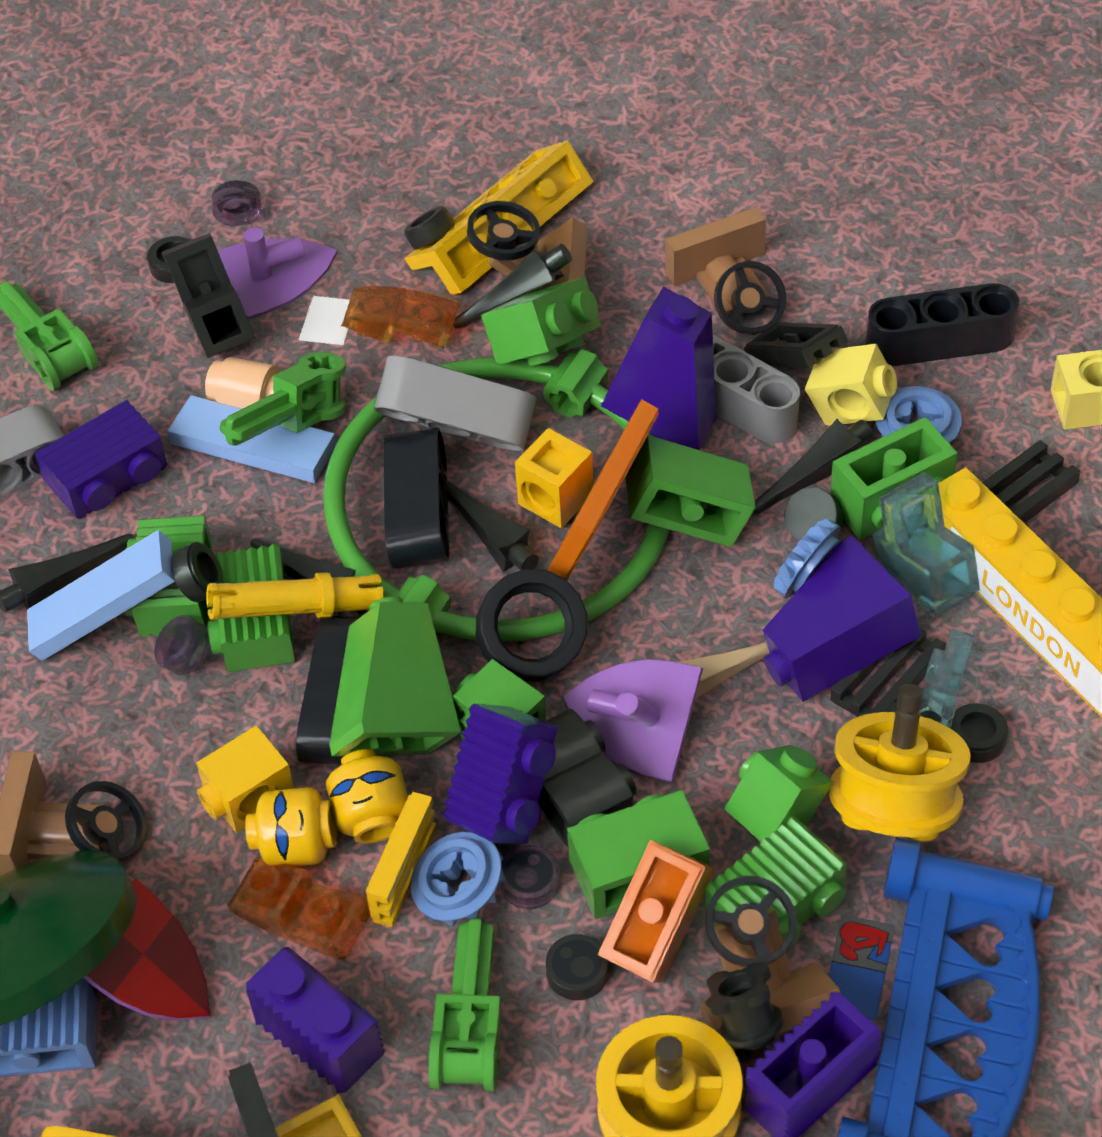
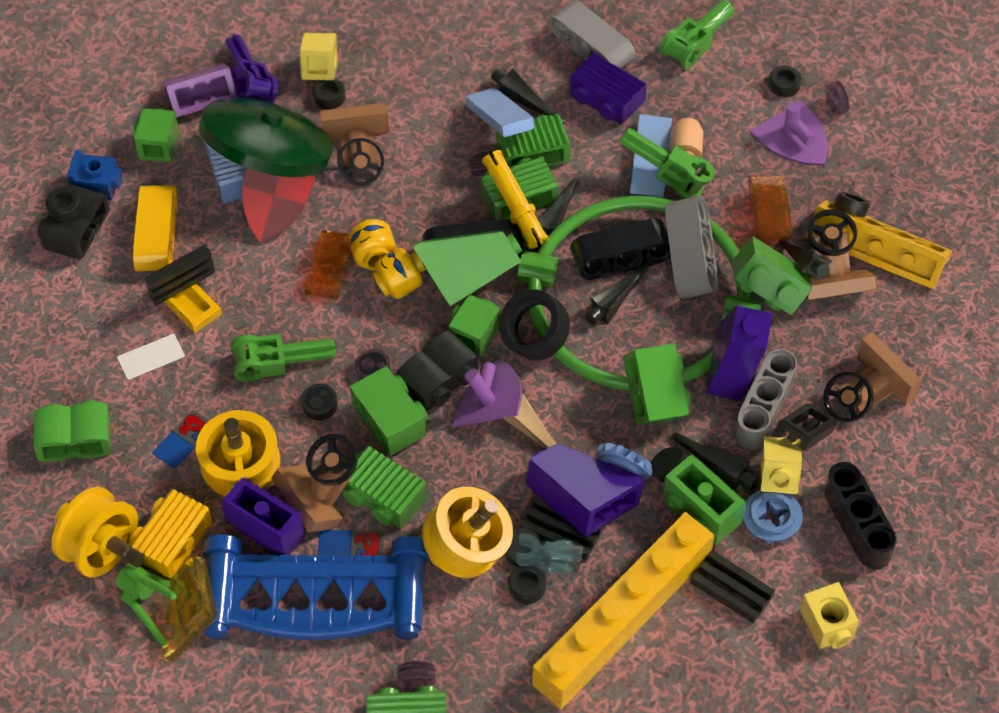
camera: 75 degrees right, 5 degrees up
(194, 569) = (517, 147): pearl dark grey tile -> none
(208, 295) = (744, 108): pearl dark grey brick -> none
(239, 775) = (403, 214): yellow brick -> none
(315, 1019) = (256, 283): dark purple brick -> none
(325, 321) = (764, 169): white sticker -> none
(395, 868) = (365, 300): yellow tile -> none
(444, 863) = (345, 329): medium blue gear -> none
(500, 773) = (417, 326): dark purple brick -> none
(554, 477) = (650, 313): yellow brick -> none
(604, 490) = (623, 329): orange tile -> none
(656, 912) = (353, 420): orange slope -> none
(744, 1006) = (282, 469): pearl dark grey brick -> none
(777, 787) = (443, 471): bright green brick -> none
(920, 550) = (656, 515): clear light blue brick -> none

